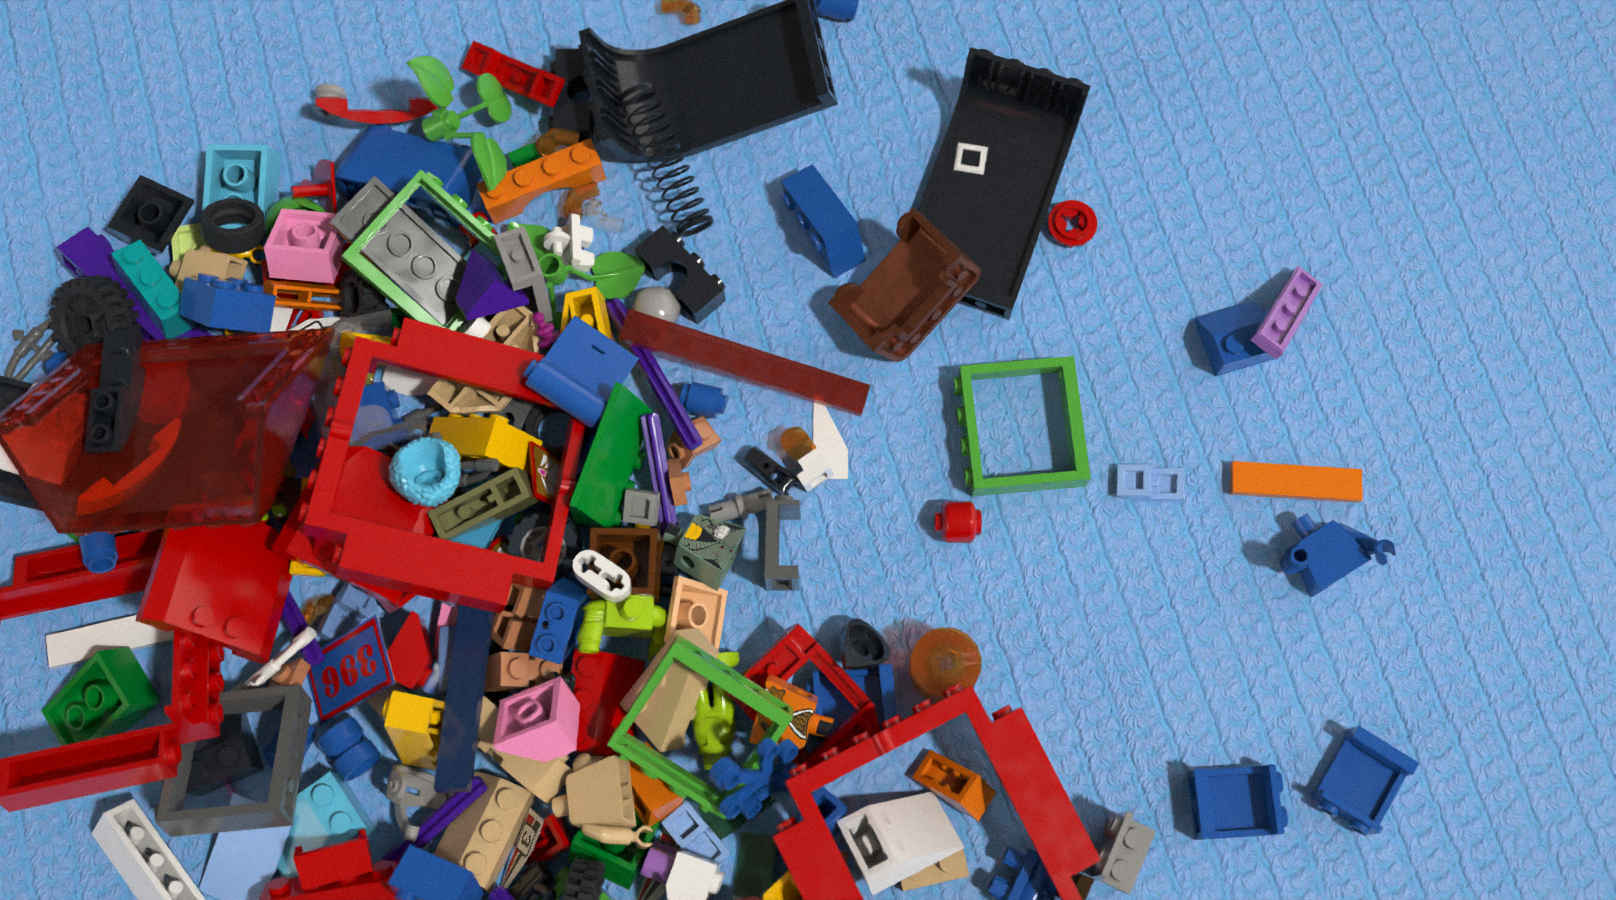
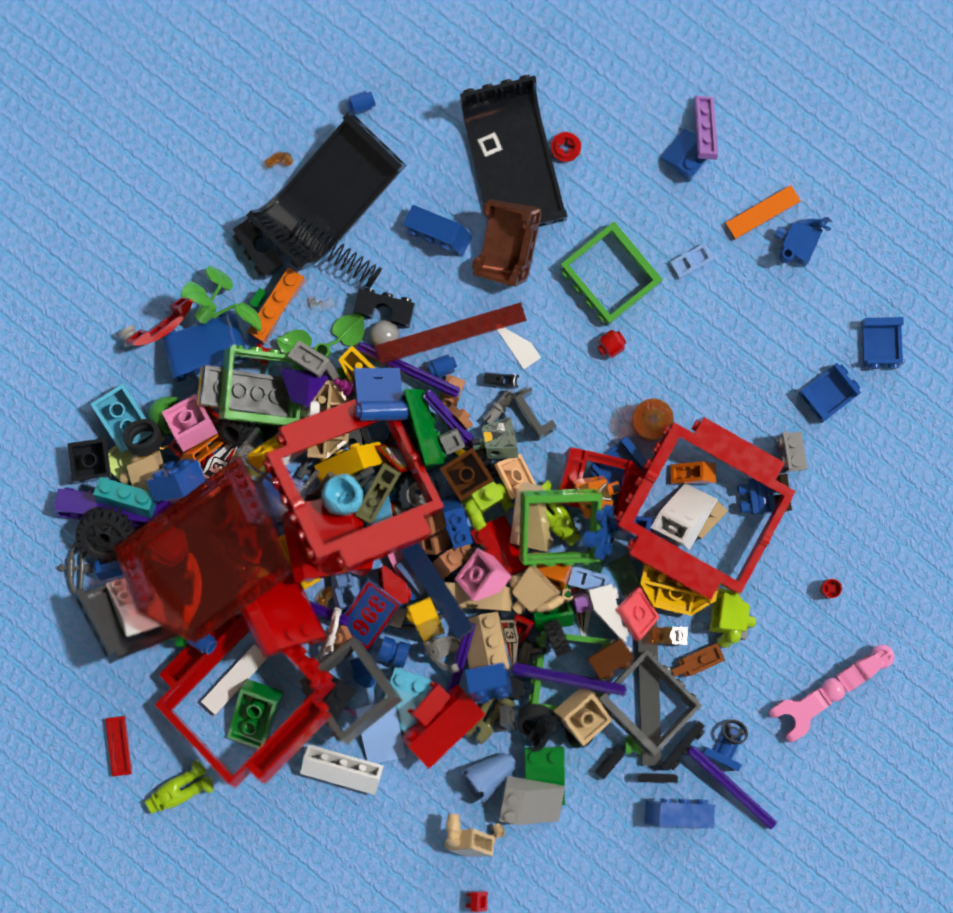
camera: 35 degrees left, 10 degrees up
(119, 394) = (160, 560): black slope -> none
(321, 186) = (166, 385): red shield -> none
(514, 74) = (219, 257): red slope -> none
(554, 138) = (268, 280): clear orange arm -> none
(567, 244) = (316, 331): white hips -> none
(577, 196) = (299, 302): clear orange arm -> none
(606, 570) = (463, 483): white beam -> none
(801, 448) = (509, 358): leg -> none
(862, 646) = (606, 437): black piece -> none

